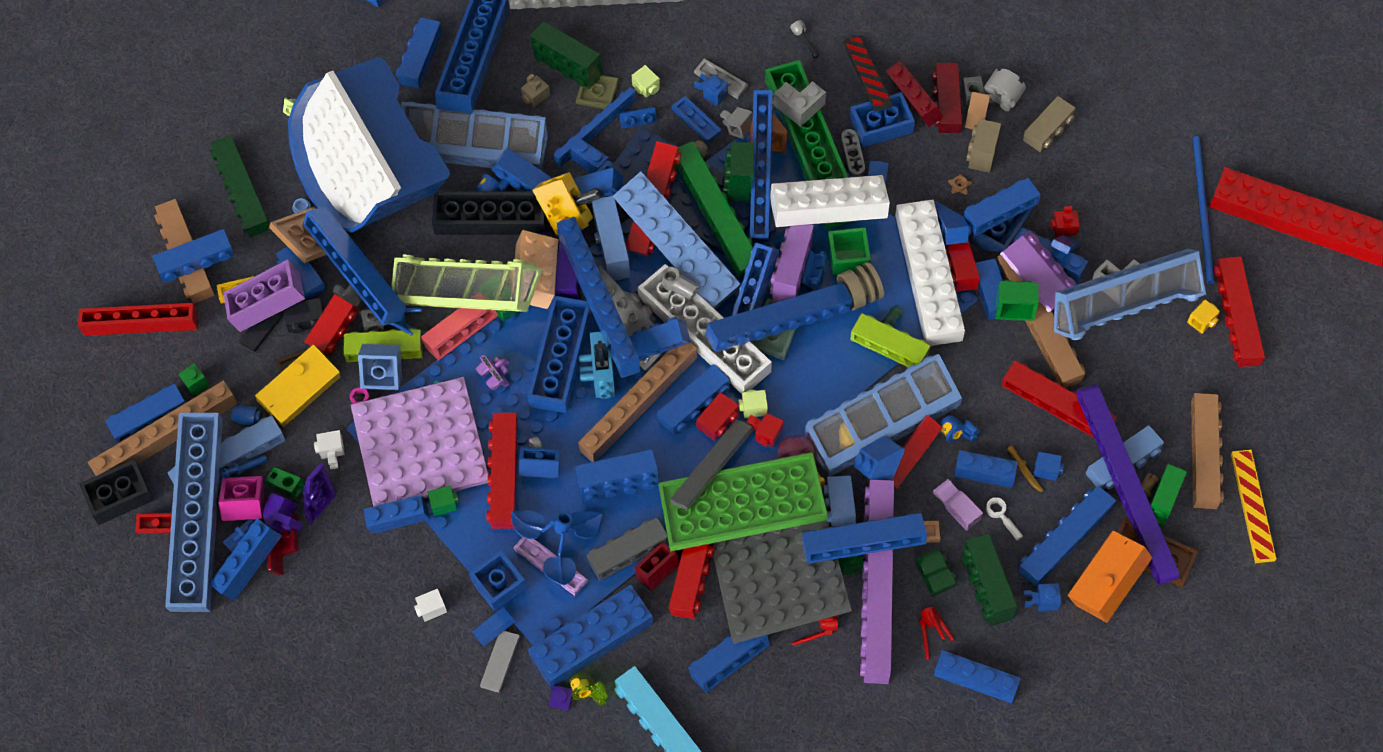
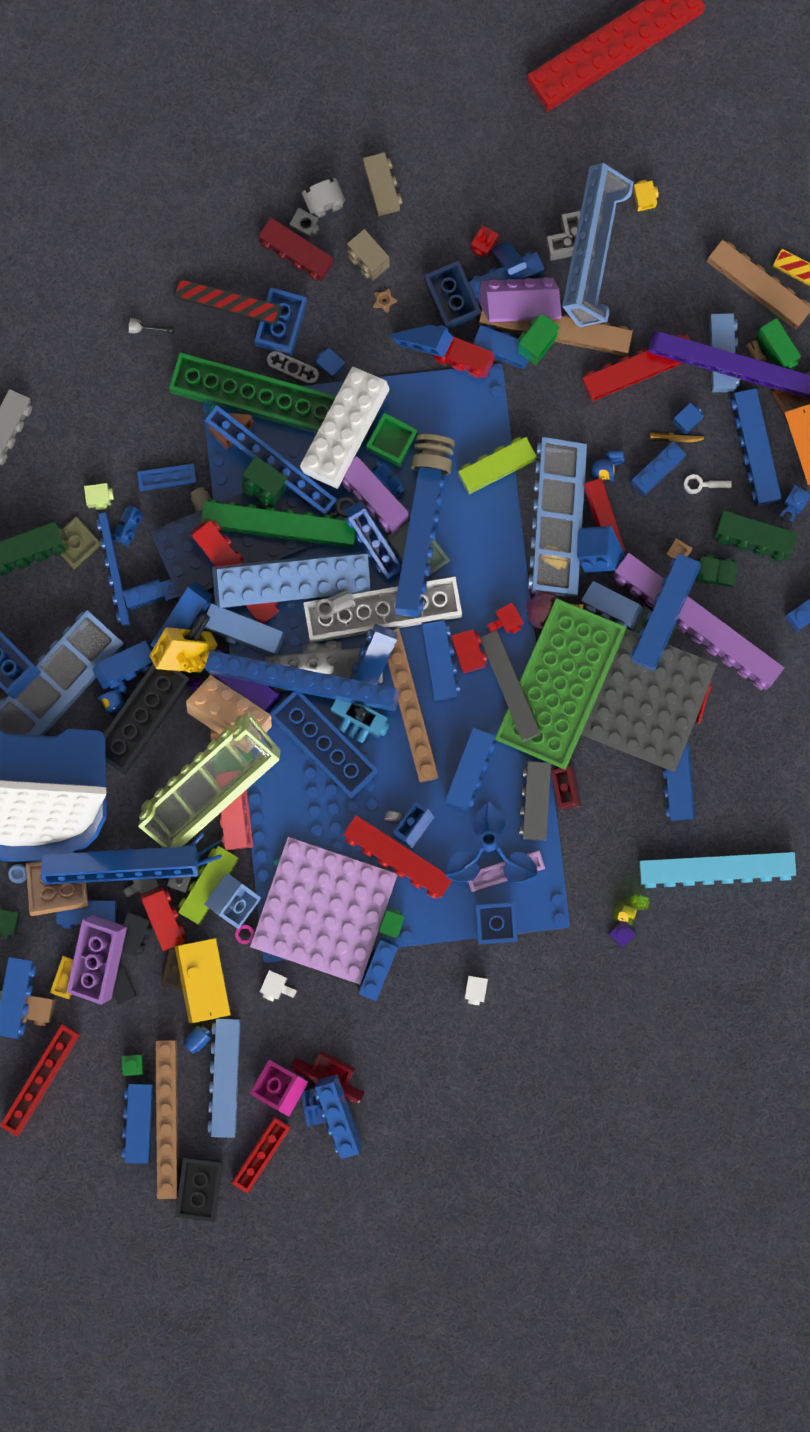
camera: 55 degrees left, 20 degrees up
(194, 512) = (268, 1134): medium blue brick -> none
(237, 470) = (245, 1091): blue piece -> none
(278, 514) = (314, 1067): dark purple brick -> none
(285, 483) = (283, 1043): green leg -> none
(317, 493) = (315, 1025): dark purple wedge -> none
(488, 366) = (300, 804): medium lavender hips -> none
(493, 626) = (528, 950): blue tile -> none
(500, 661) = (559, 963): light grey tile -> none
(534, 91) = (41, 598): dark tan brick -> none
(591, 636) = (589, 878): blue brick -> none
(690, 581) = (597, 770): red brick -> none
(713, 89) = (148, 443): blue brick -> none
(735, 86) = (138, 428): light grey tile -> none
(738, 122) = (198, 444): light grey brick -> none
(753, 403) = (476, 614): yellowish green brick -> none
(799, 105) = (230, 388): light grey brick -> none
(895, 313) = (474, 447): clear green pin -> none
(914, 94) = (277, 277): dark red brick -> none
(929, 273) = (455, 387): white brick -> none
(932, 619) = (751, 602): red plant -> none
(958, 504) = (671, 512): lavender piece -> none
(977, 109) = (328, 235): medium nougat tile -> none
(1001, 206) = (443, 286): blue brick -> none
(1203, 210) = (546, 118): blue piece -> none
(1239, 312) = (659, 163): red brick -> none

